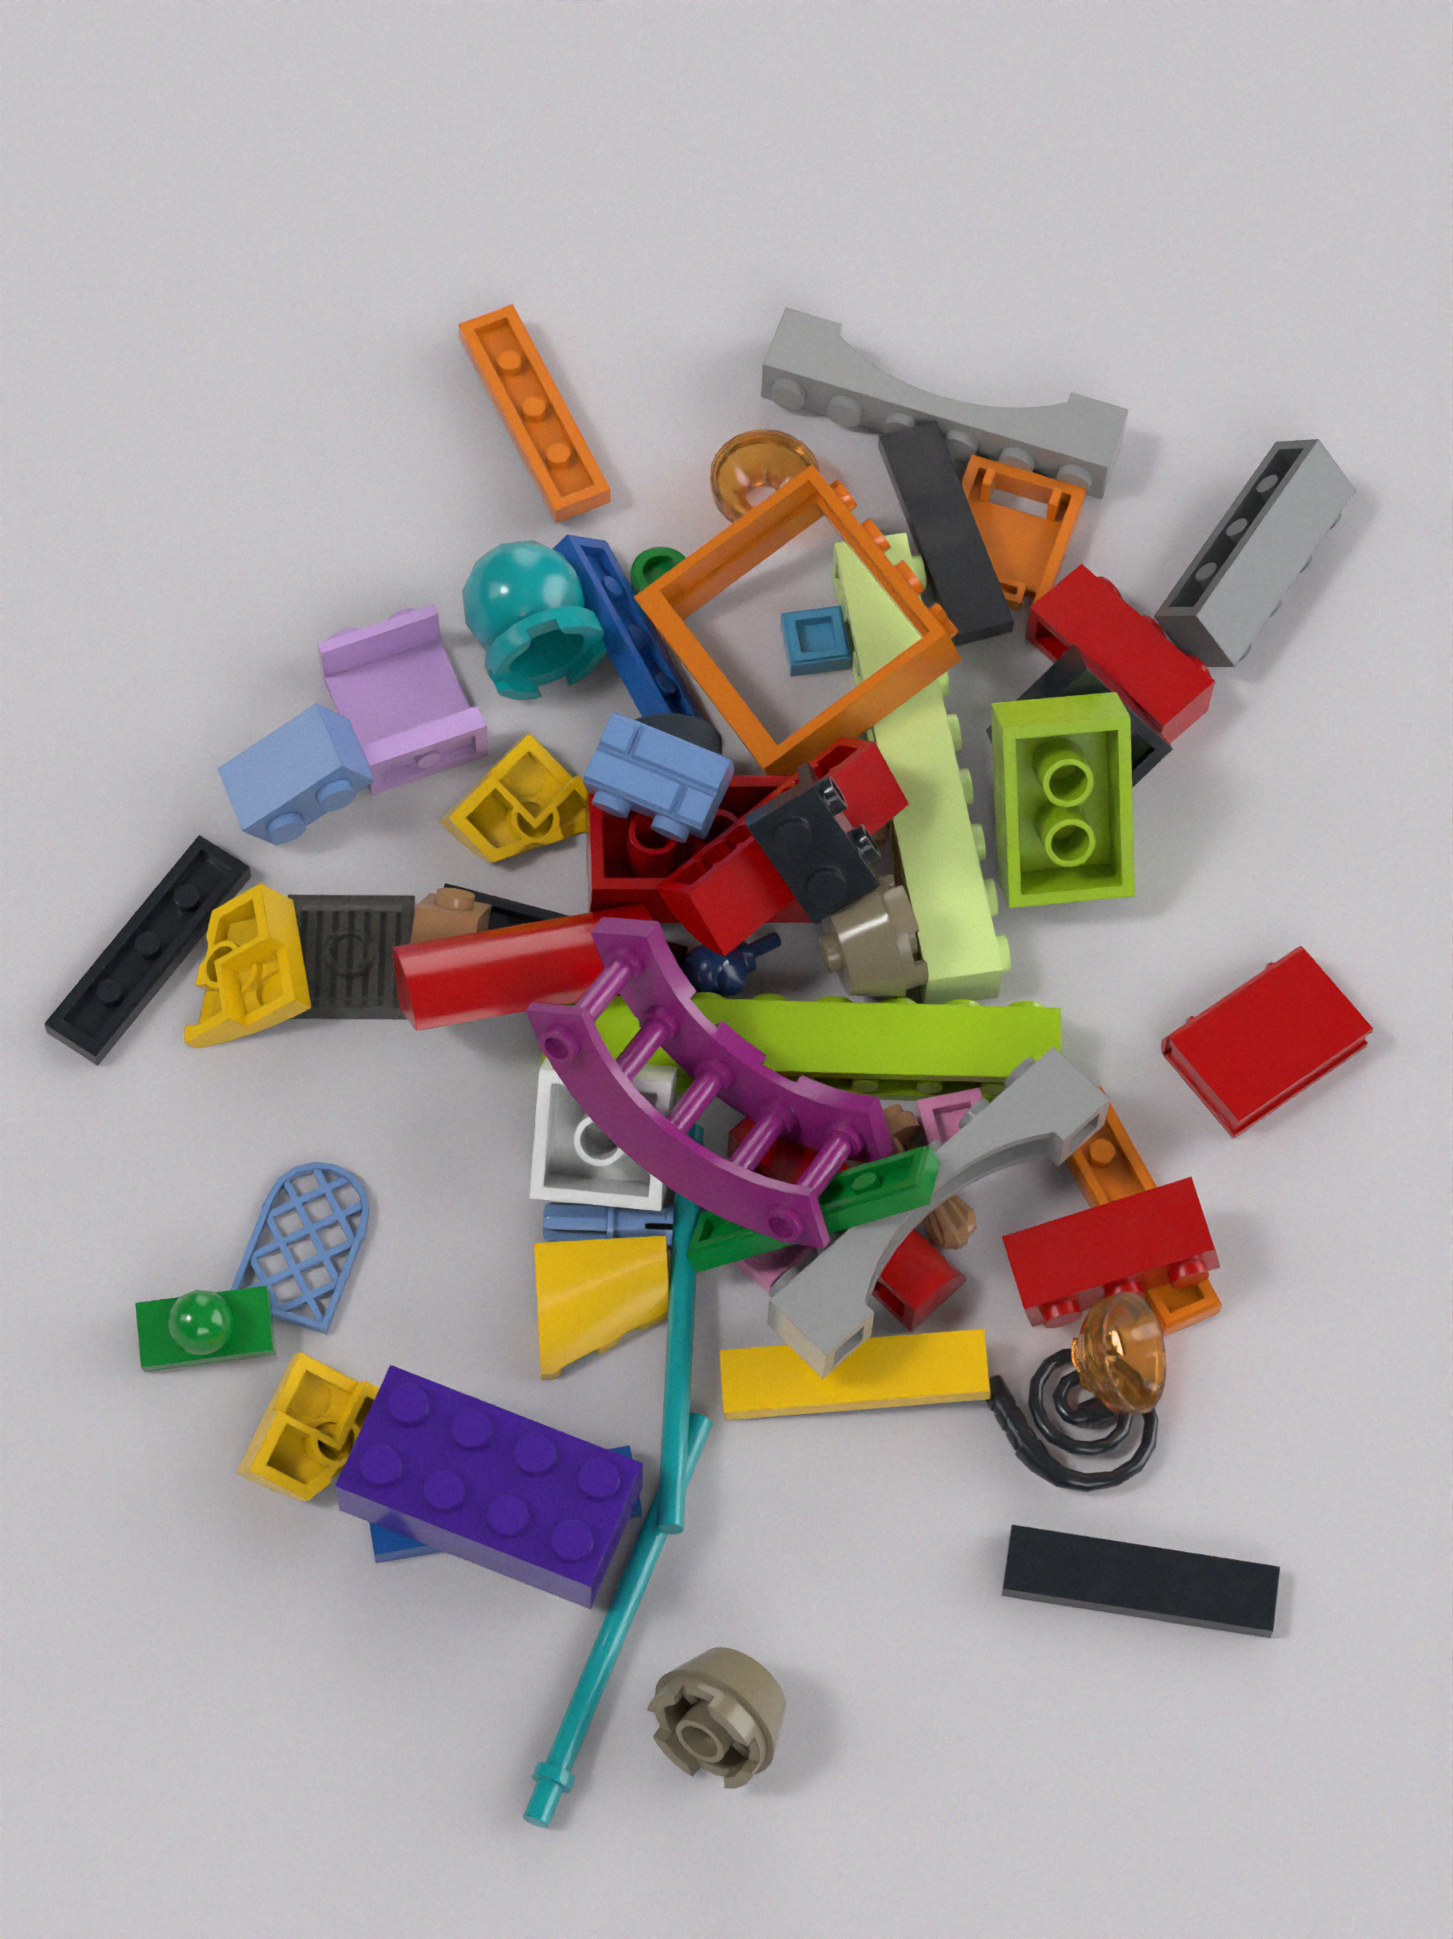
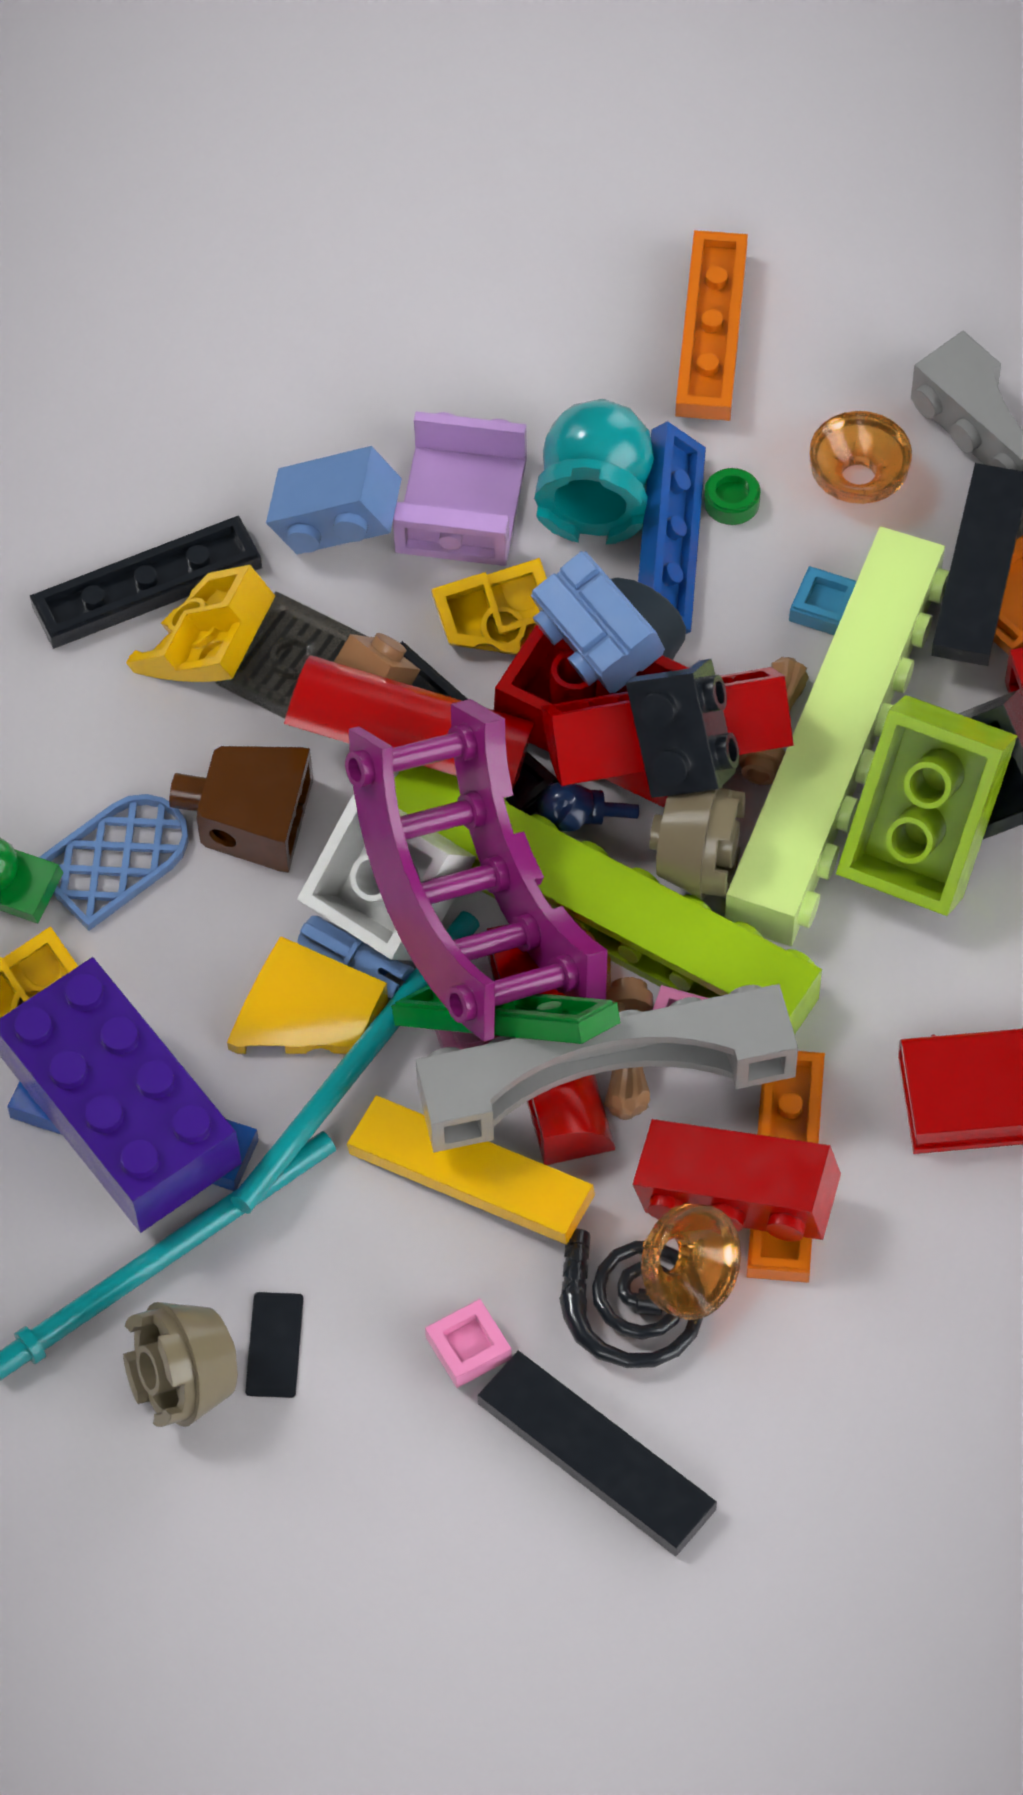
camera: 35 degrees right, 5 degrees down
(408, 1124) = (249, 802): none -> reddish brown torso
(747, 545) = (792, 498): orange window -> none
(778, 1642) = (274, 1345): none -> black sticker
(962, 1543) = (468, 1343): none -> bright pink plate

